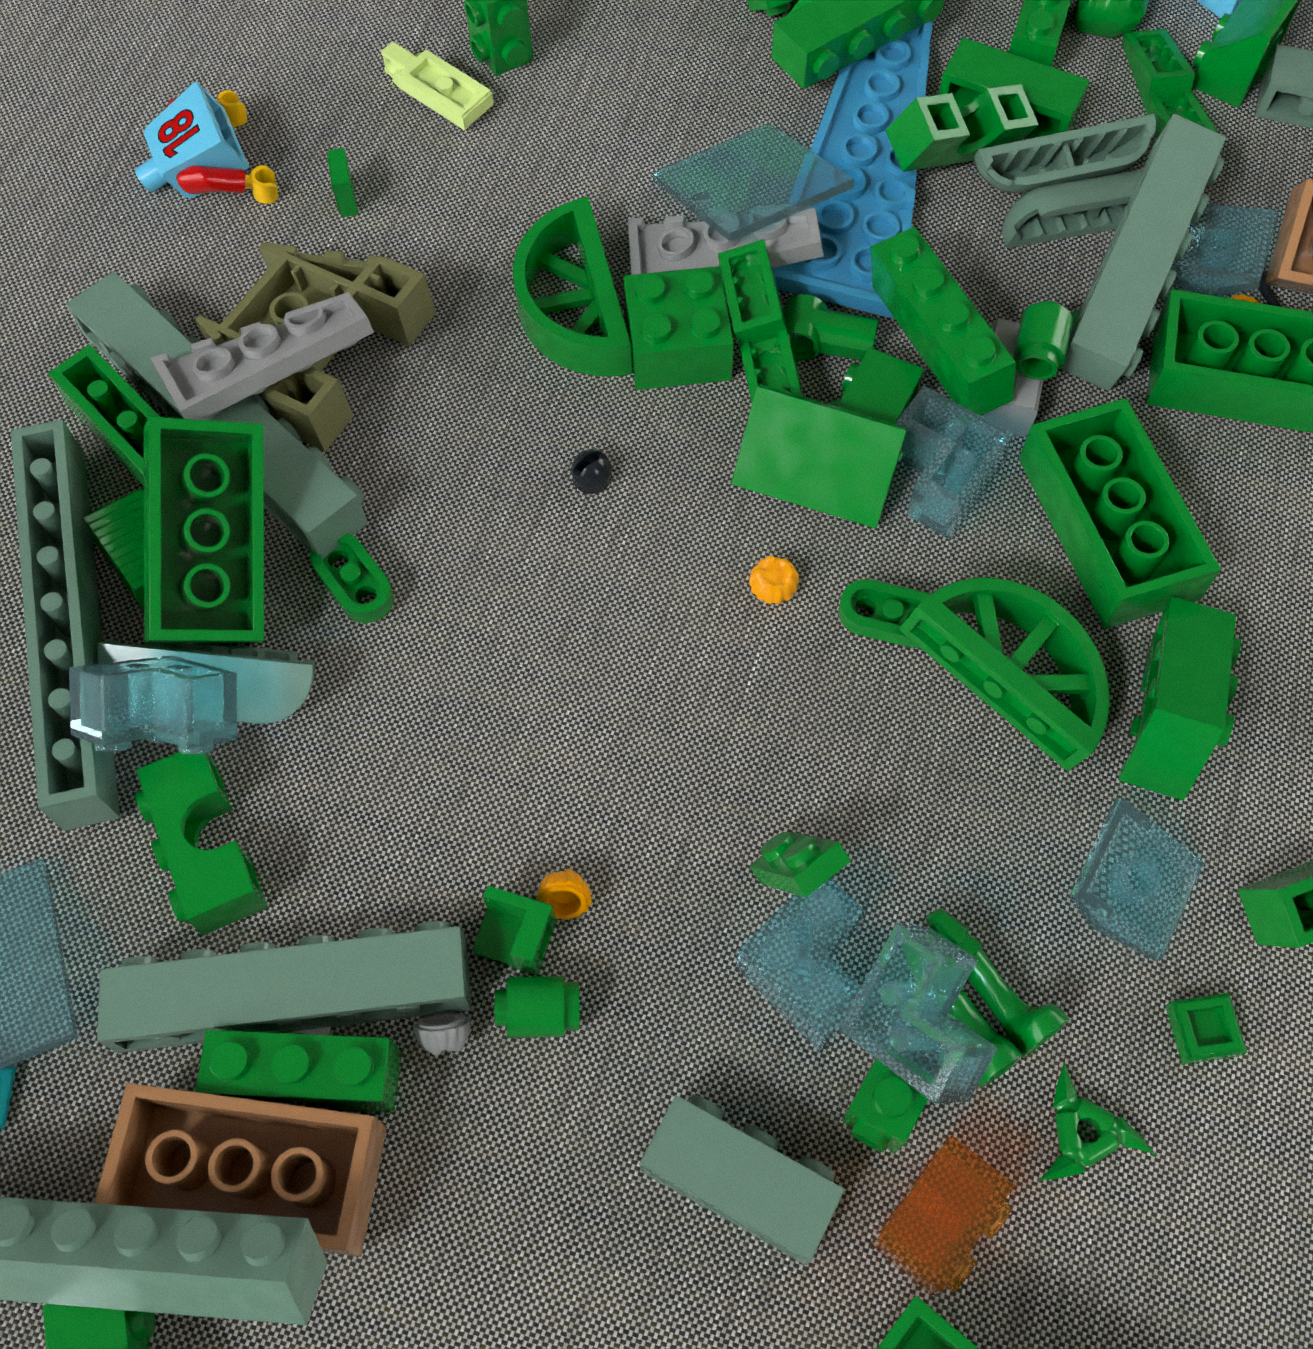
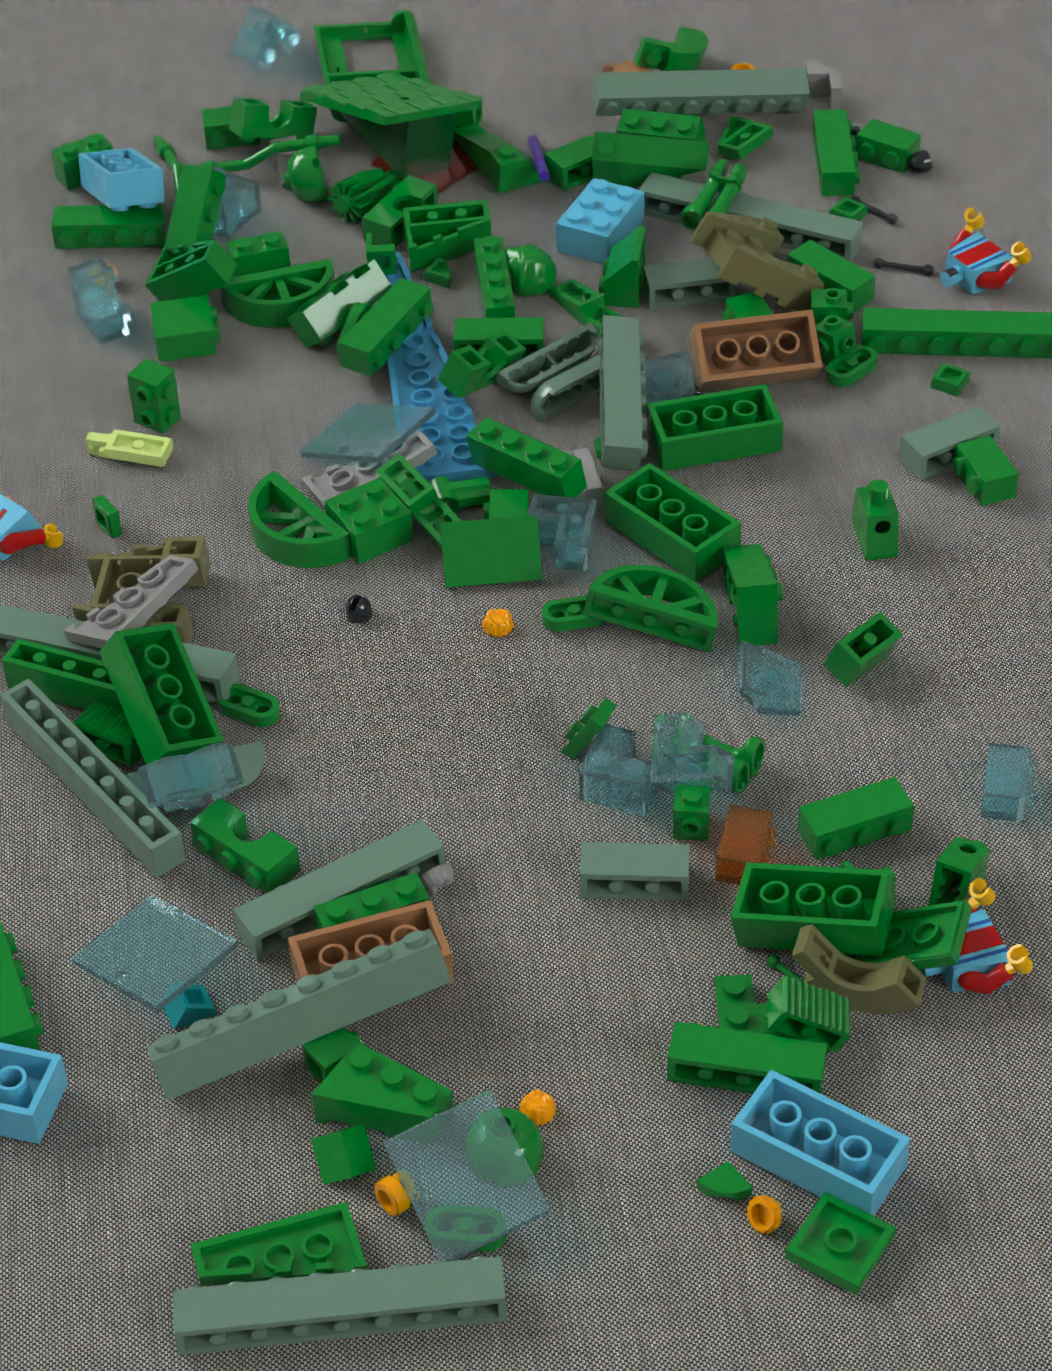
camera: 25 degrees left, 20 degrees down
(514, 930) = (450, 818): green panel -> none
(538, 1007) = (484, 846): green brick -> none
(566, 894) = (468, 797): light orange piece -> none
(1042, 340) = (588, 447): green brick -> none
(1075, 1152) = (794, 785): green piece -> none
(1157, 1251) = (855, 818): none -> green brick
(1205, 1028) = (838, 730): green tile -> none

